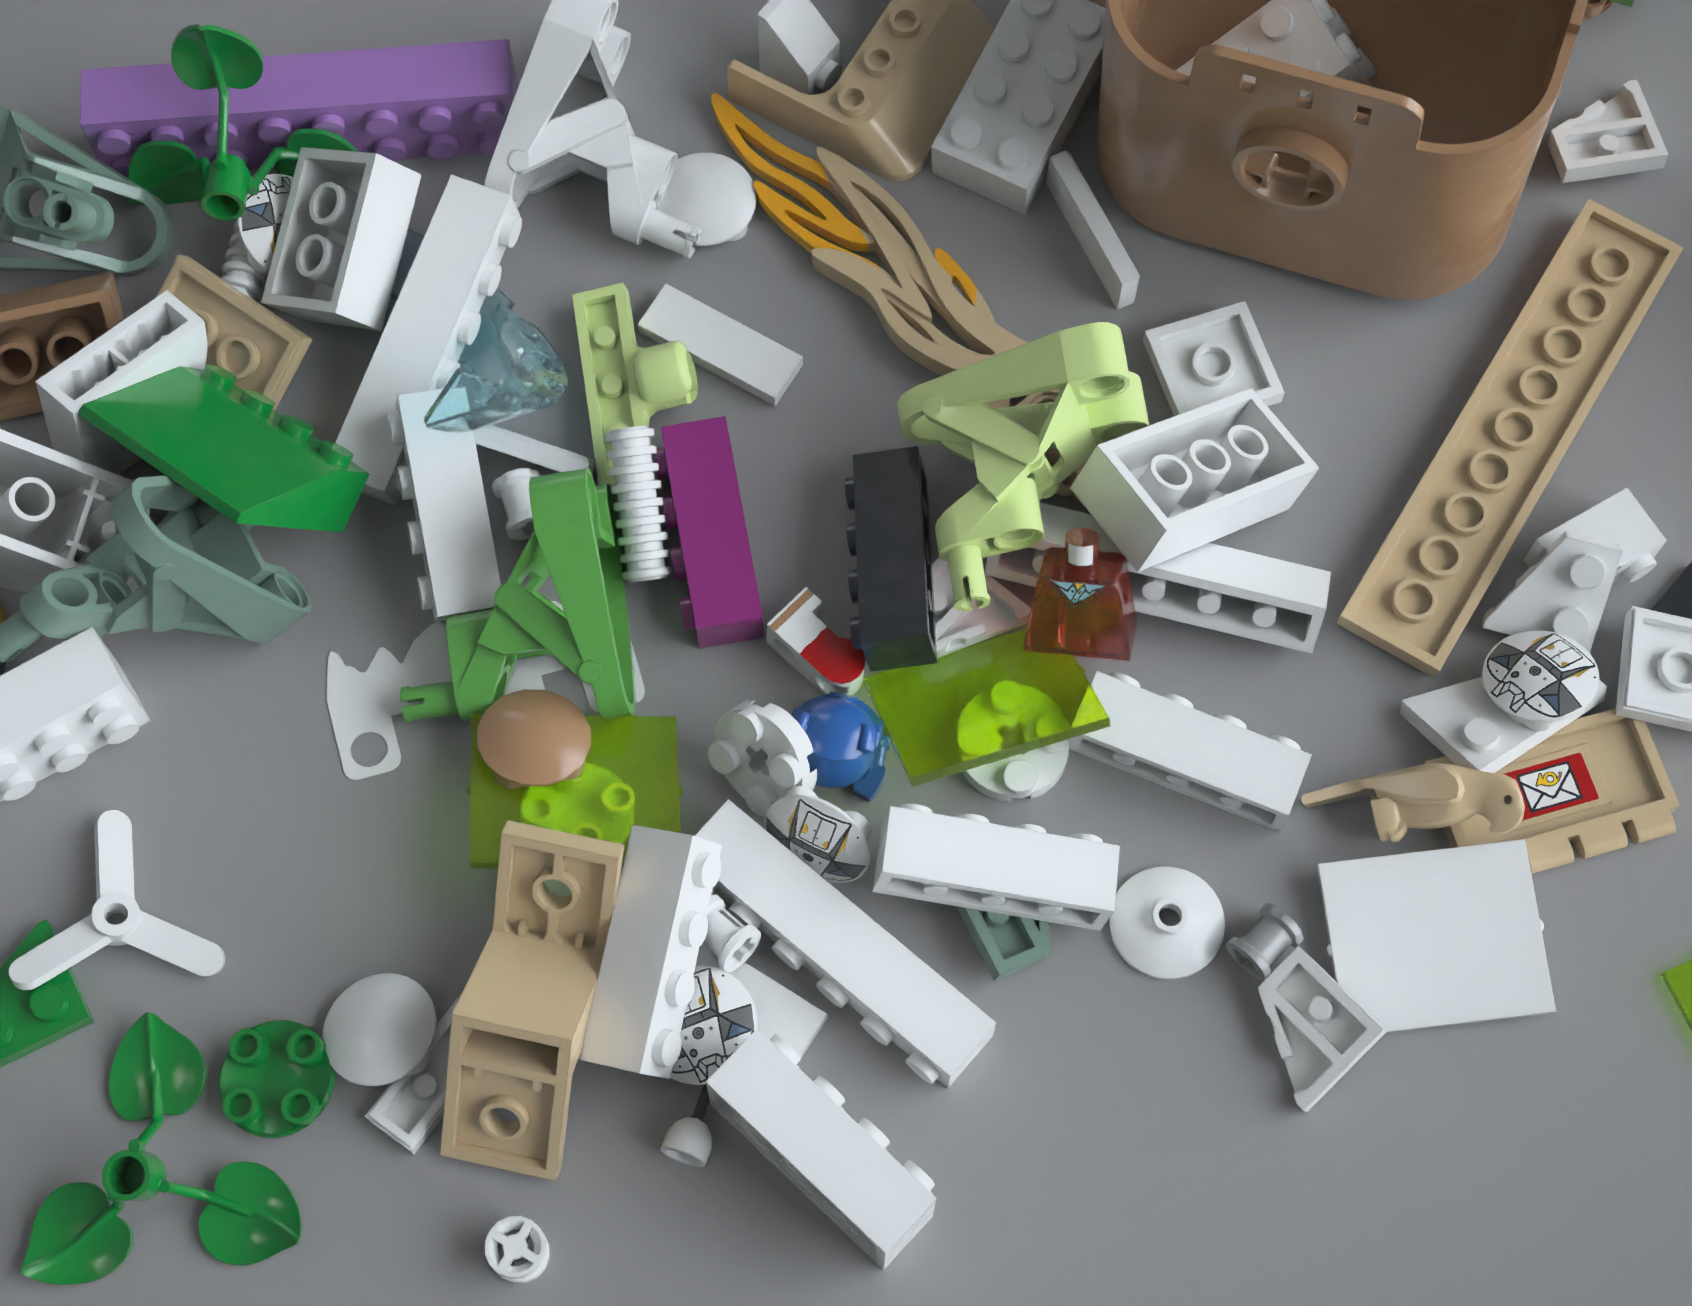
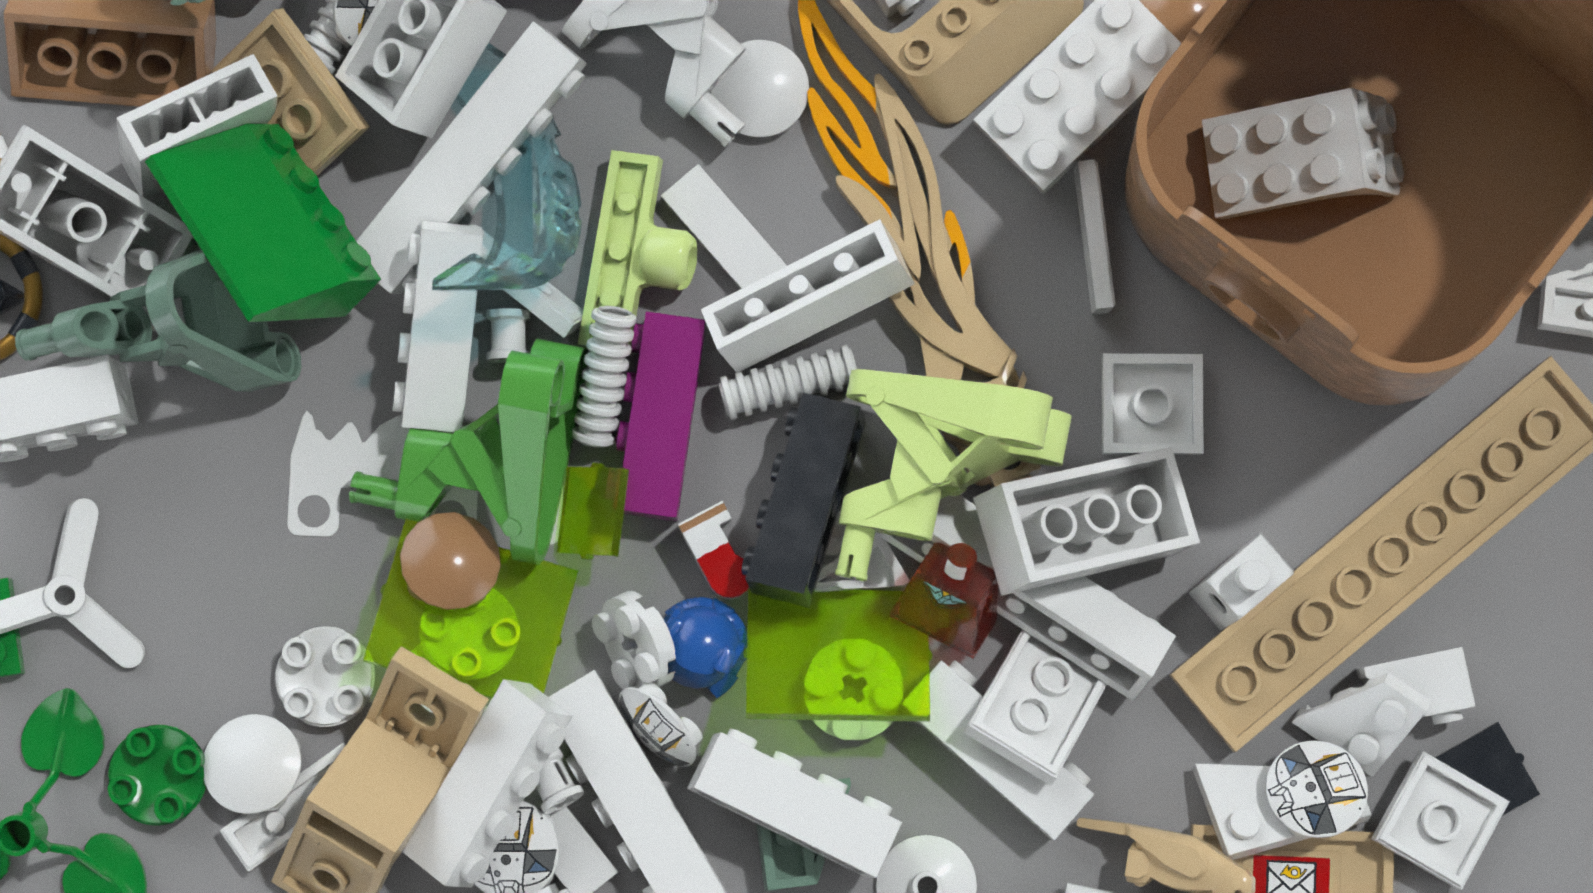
camera: 15 degrees right, 15 degrees up
(433, 912) = (324, 676): none -> white dish
(671, 644) = (592, 511): none -> clear neon green piece
(824, 359) = (807, 296): none -> white brick
(830, 459) = (786, 382): none -> white piece
(1214, 687) = (1035, 708): none -> white tile
(1381, 492) = (1241, 582): none -> white torso

